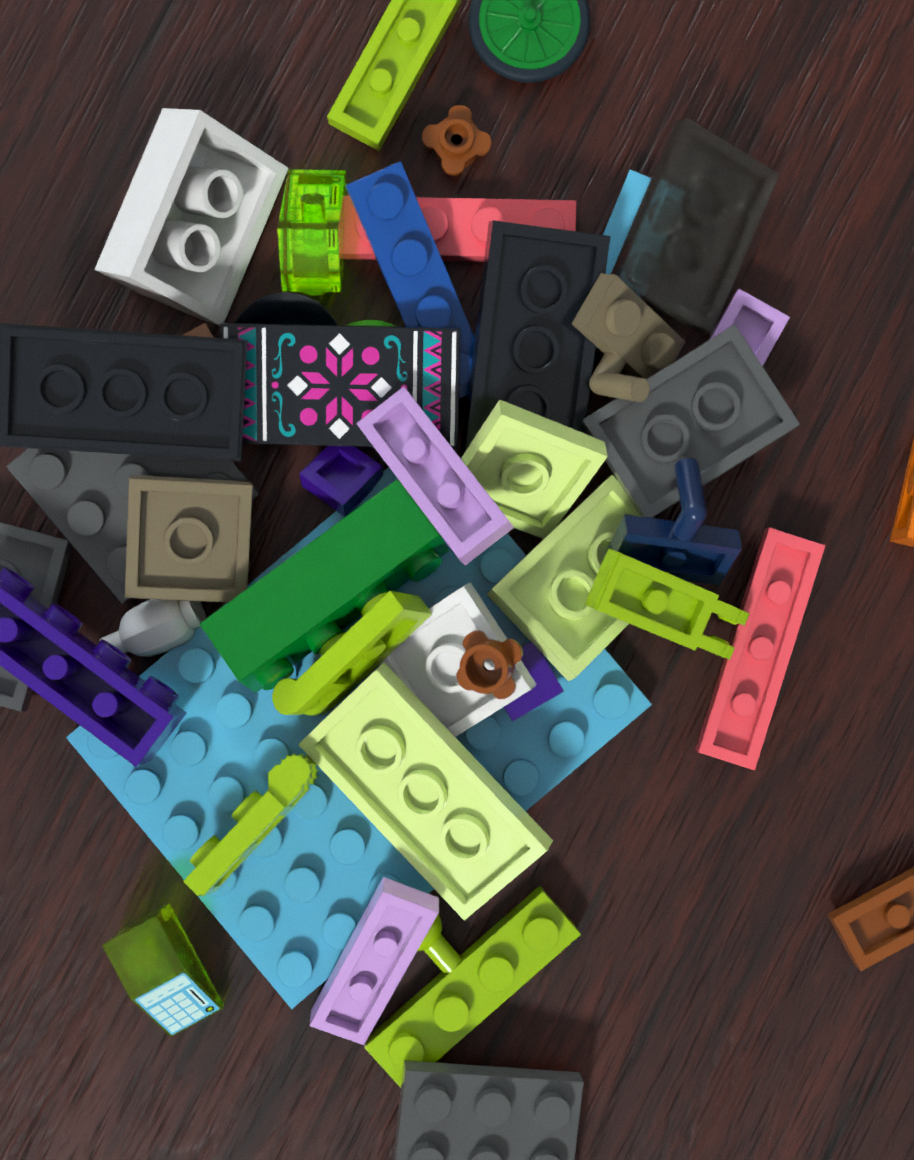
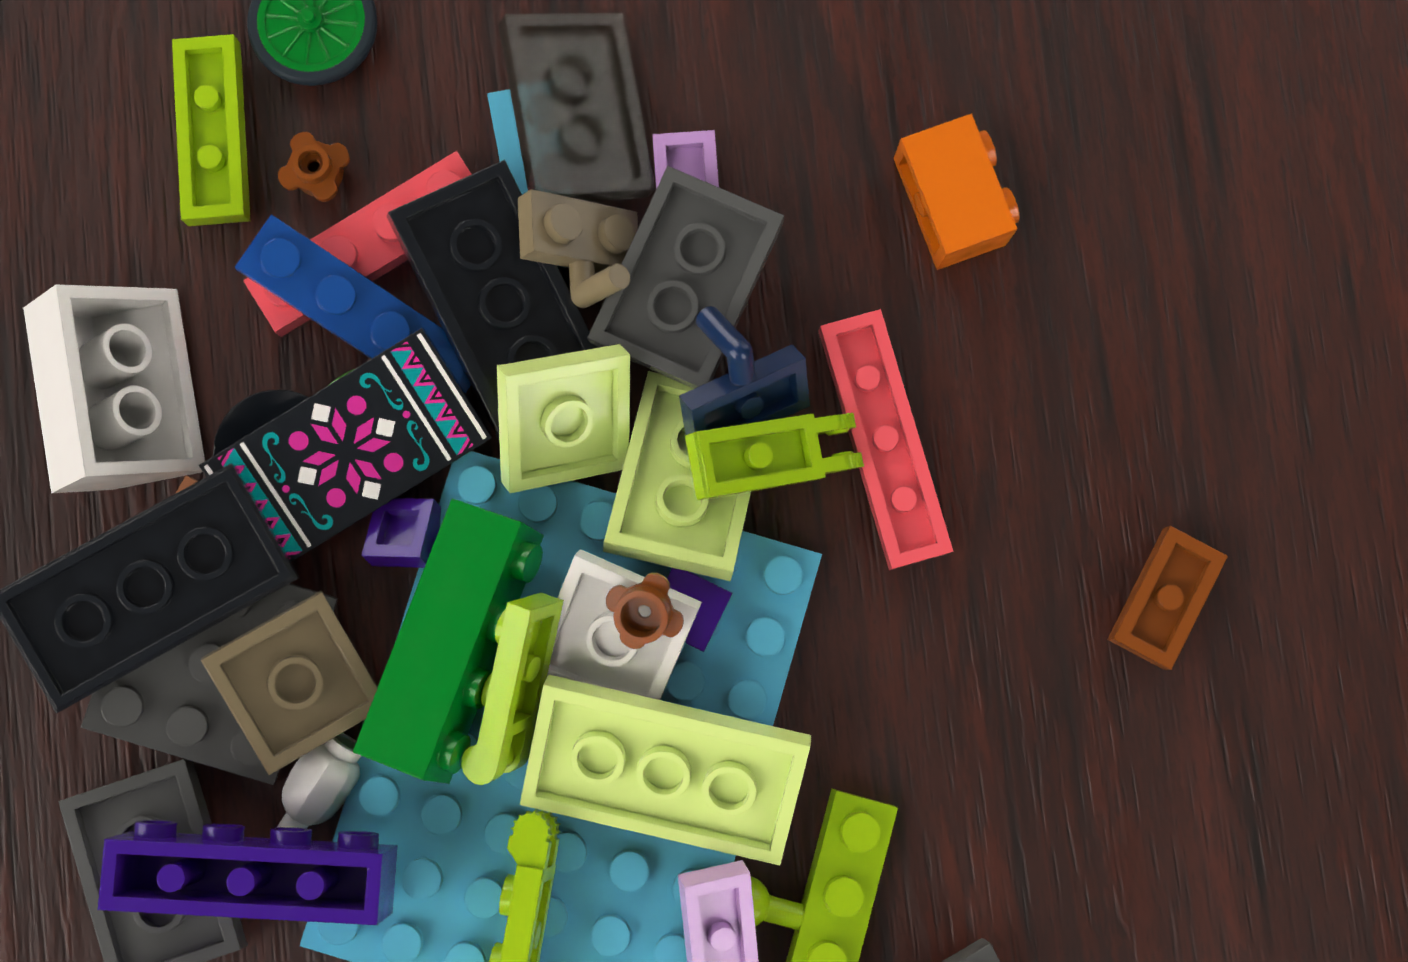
camera: 35 degrees left, 5 degrees down
(312, 231) = (233, 331): clear neon green slope -> none
(435, 476) = (484, 473): lavender plate -> none

